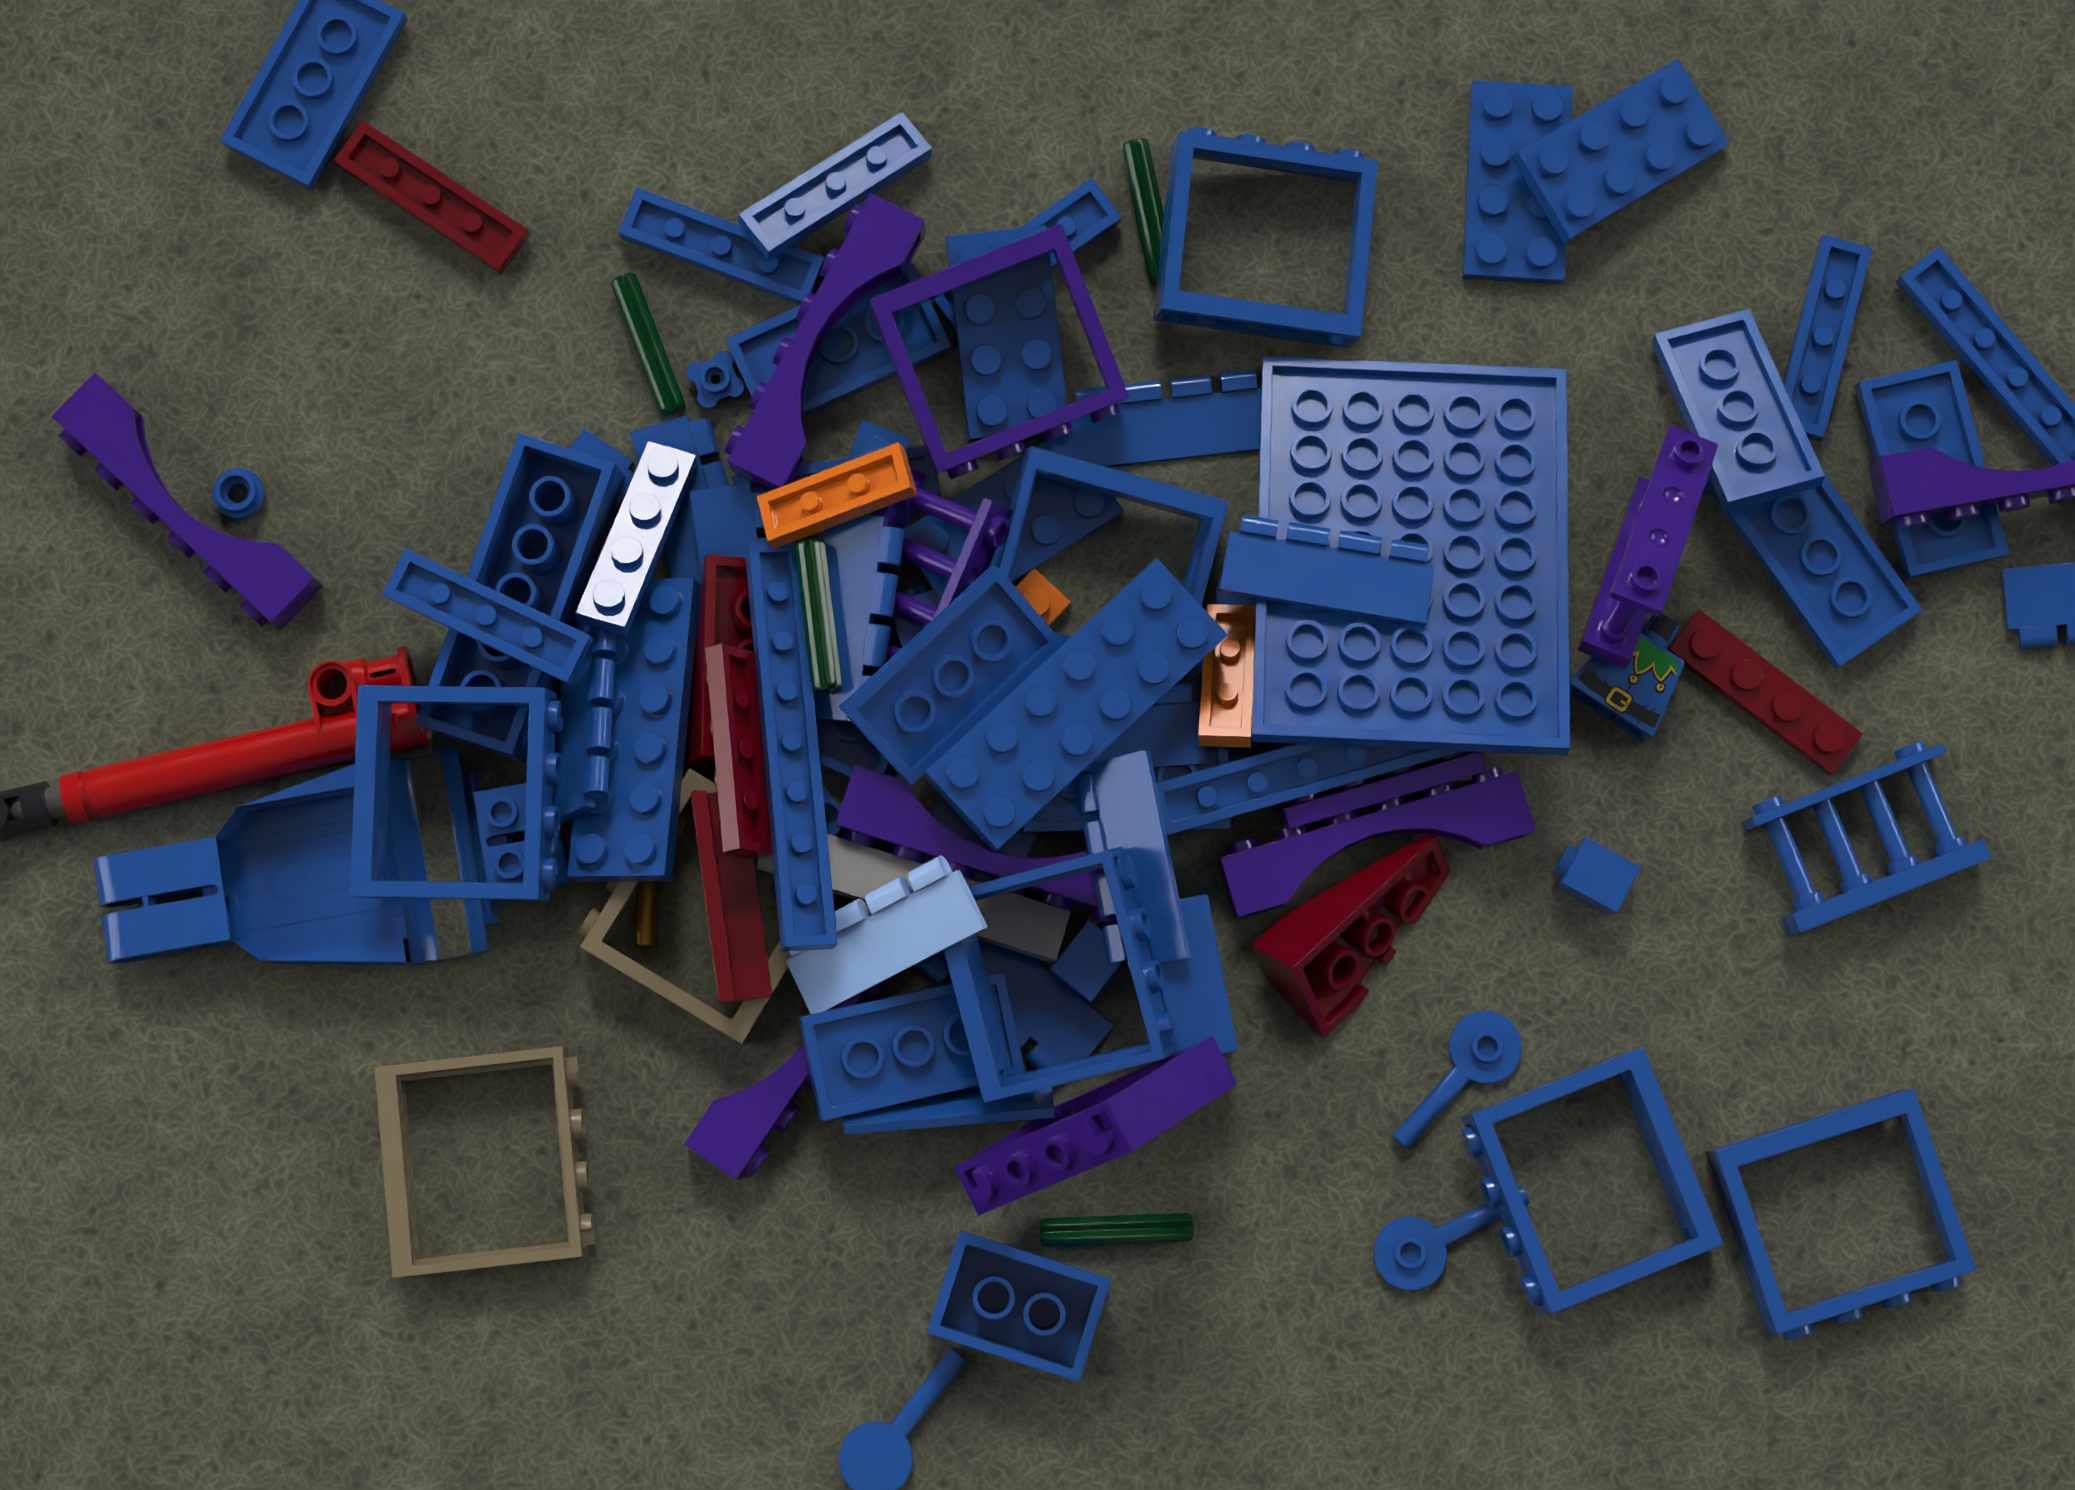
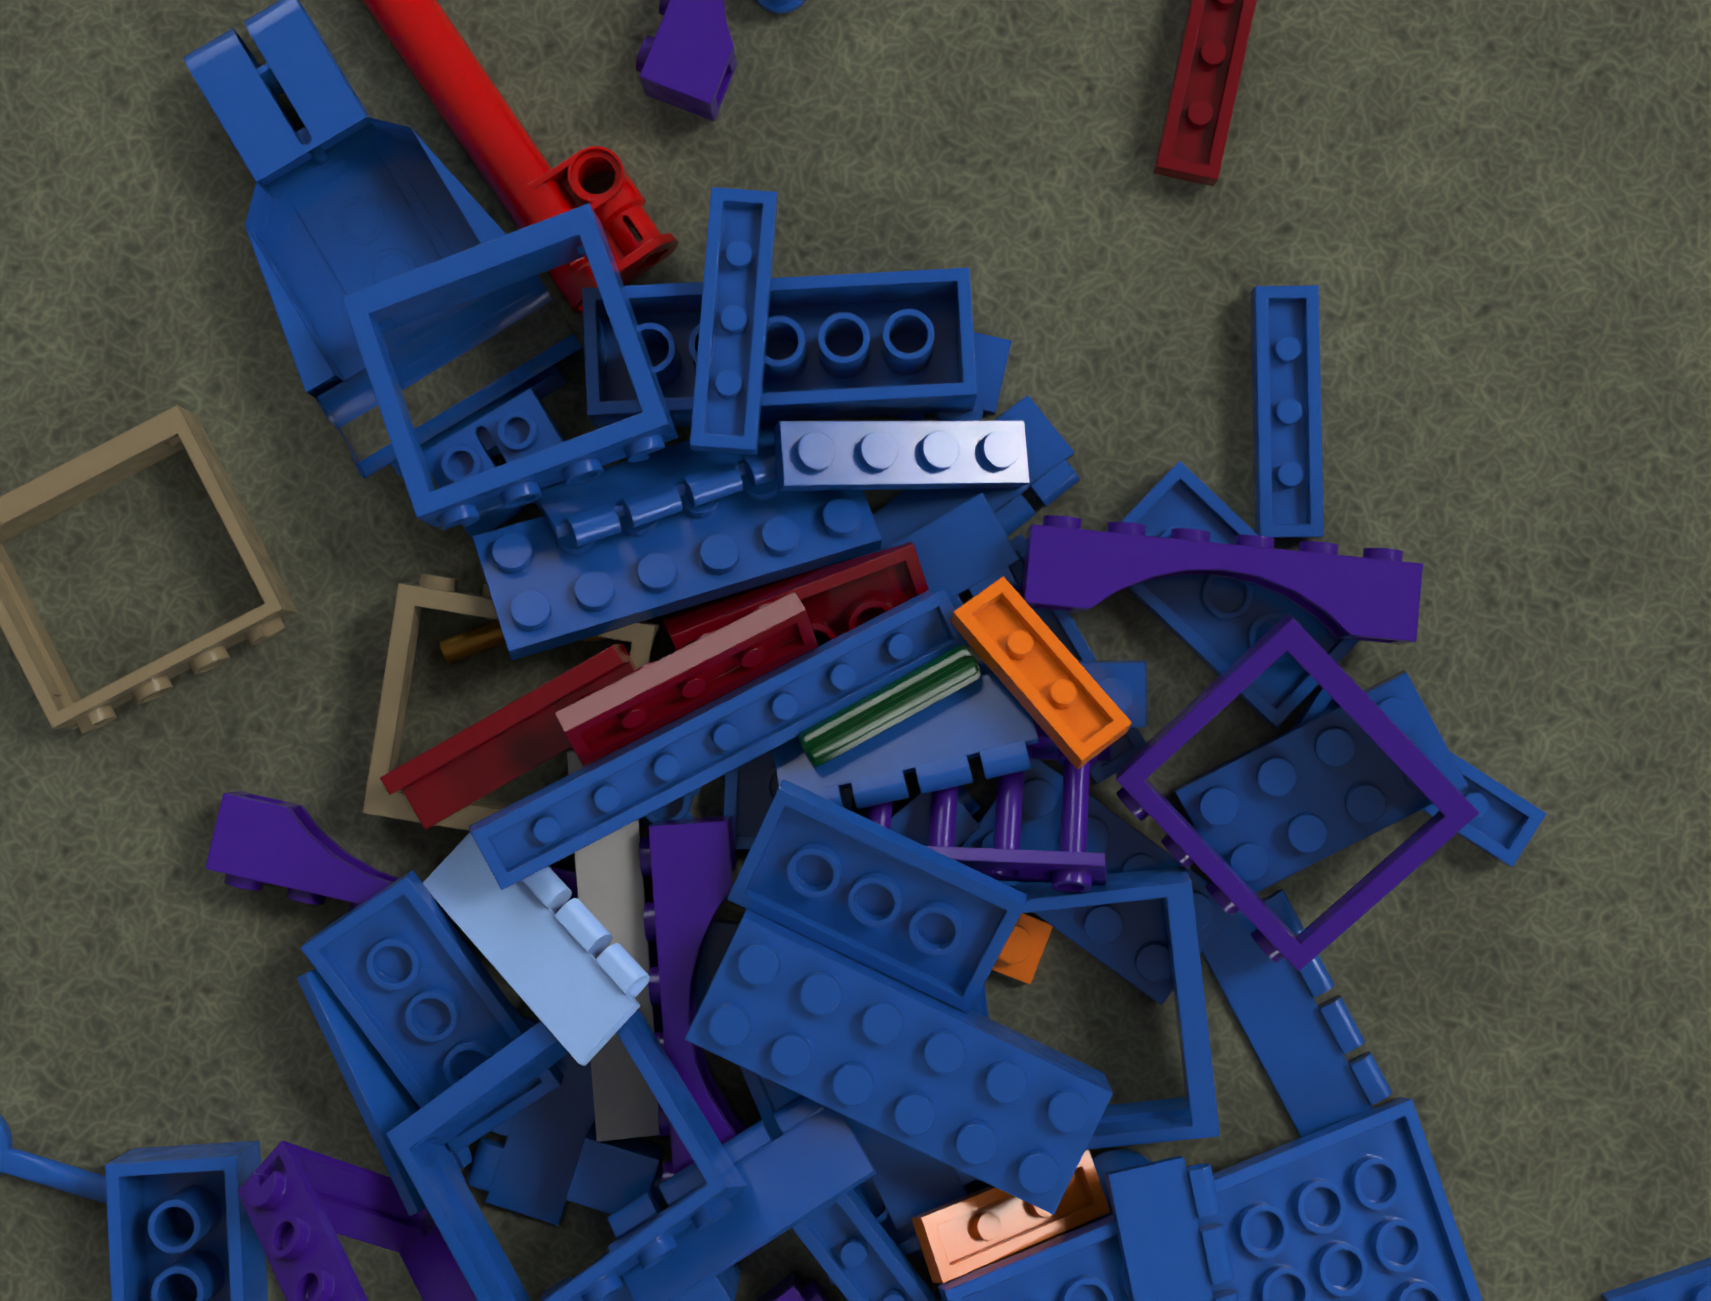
camera: 70 degrees right, 5 degrees up
(648, 344) = (1138, 373): dark green axle -> none
(711, 393) = (1127, 450): blue plate -> none
(834, 186) = (1413, 515): plate -> none
(1145, 200) = (1531, 893): dark green axle -> none
(1251, 316) = (1669, 1049): blue window -> none

